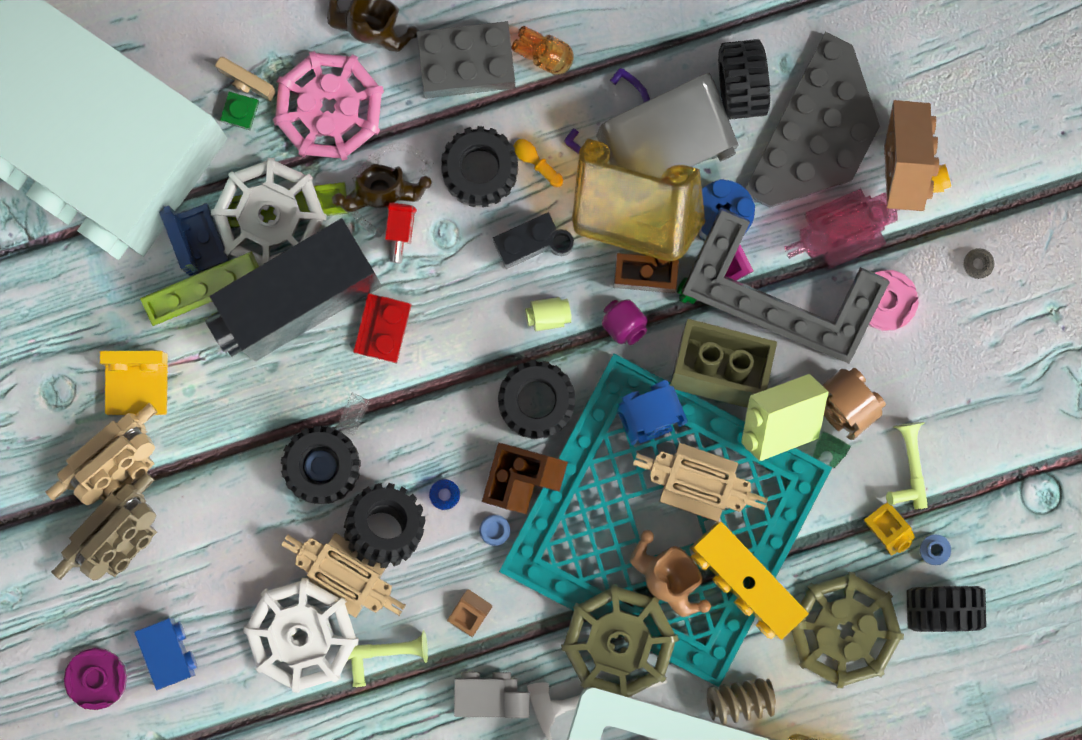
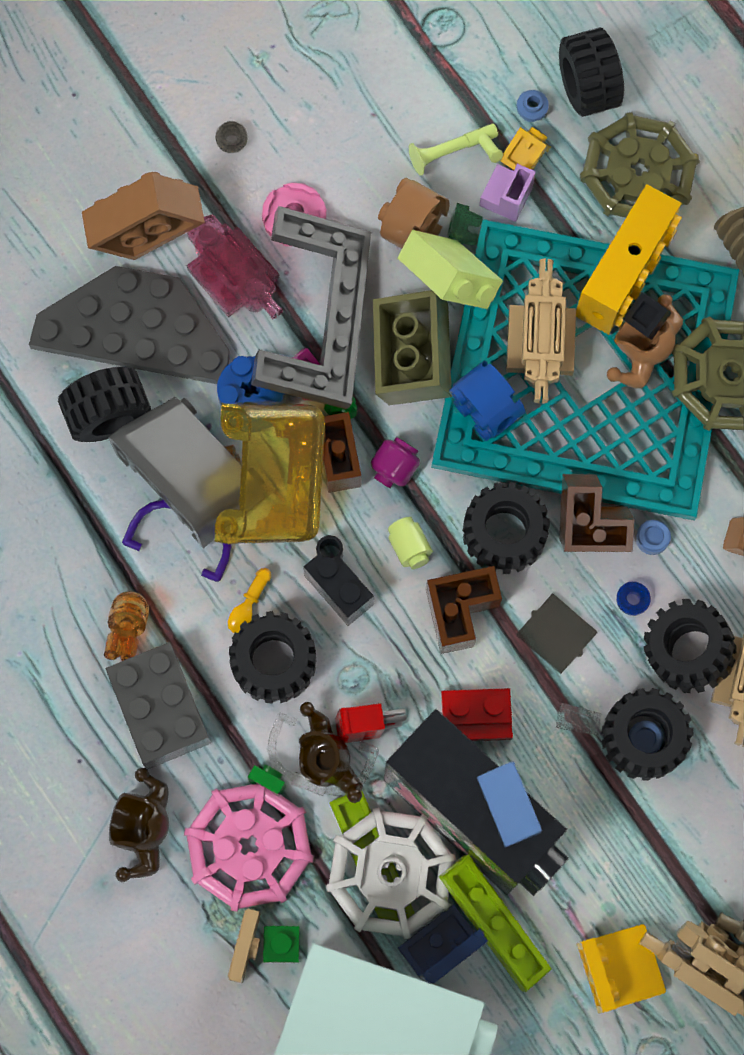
camera: 105 degrees left, 10 degrees down
(274, 307) = (509, 804): none -> medium blue slope
(377, 134) = (267, 778): none -> green plate
(434, 419) = (556, 633): none -> clear smoke piece
(483, 332) = (454, 599): none -> reddish brown brick
(686, 577) = (646, 315): none -> black plate
(855, 499) = (508, 191): none -> lavender piece

